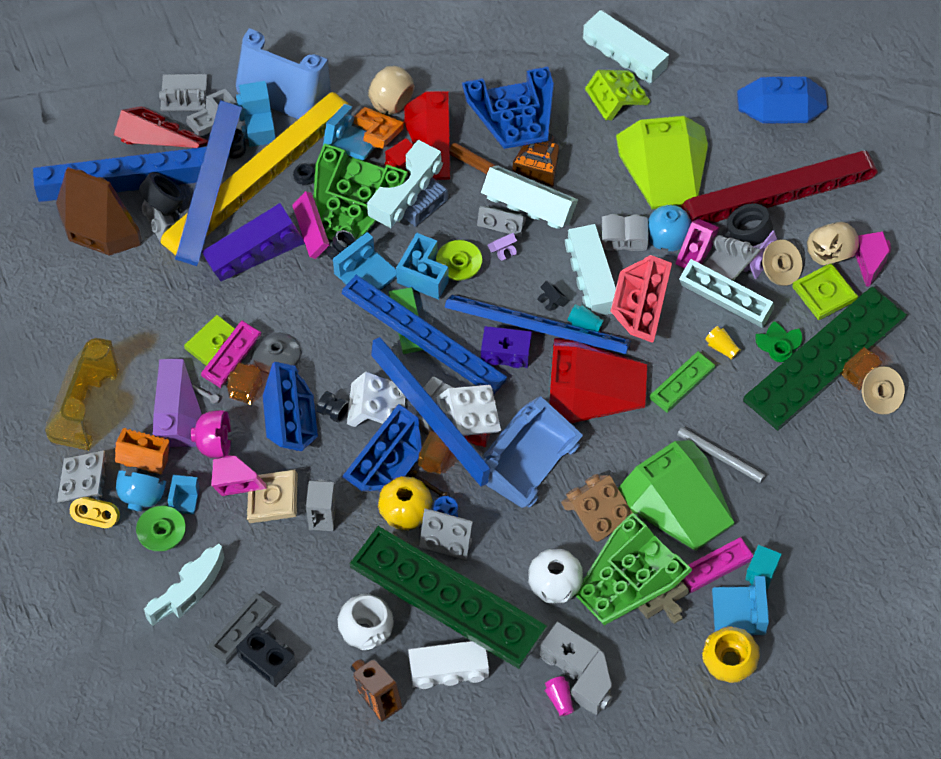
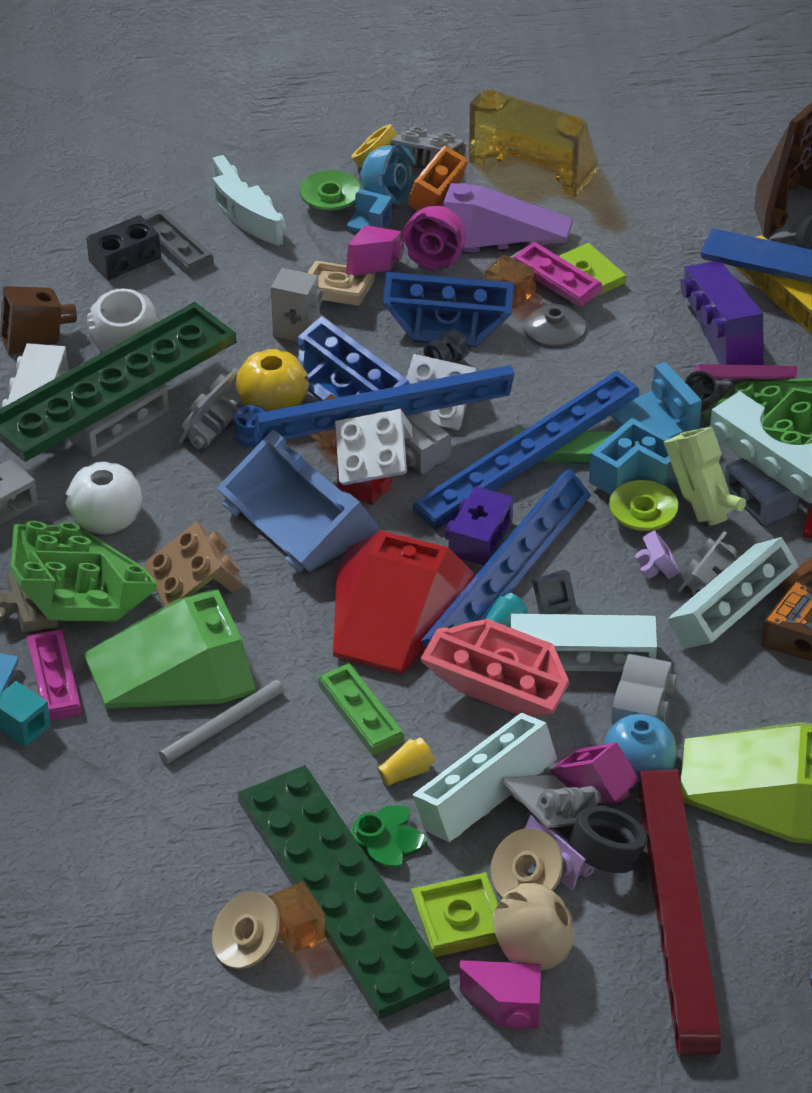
camera: 105 degrees right, 15 degrees down
(443, 221) = (700, 476): none -> yellowish green piece

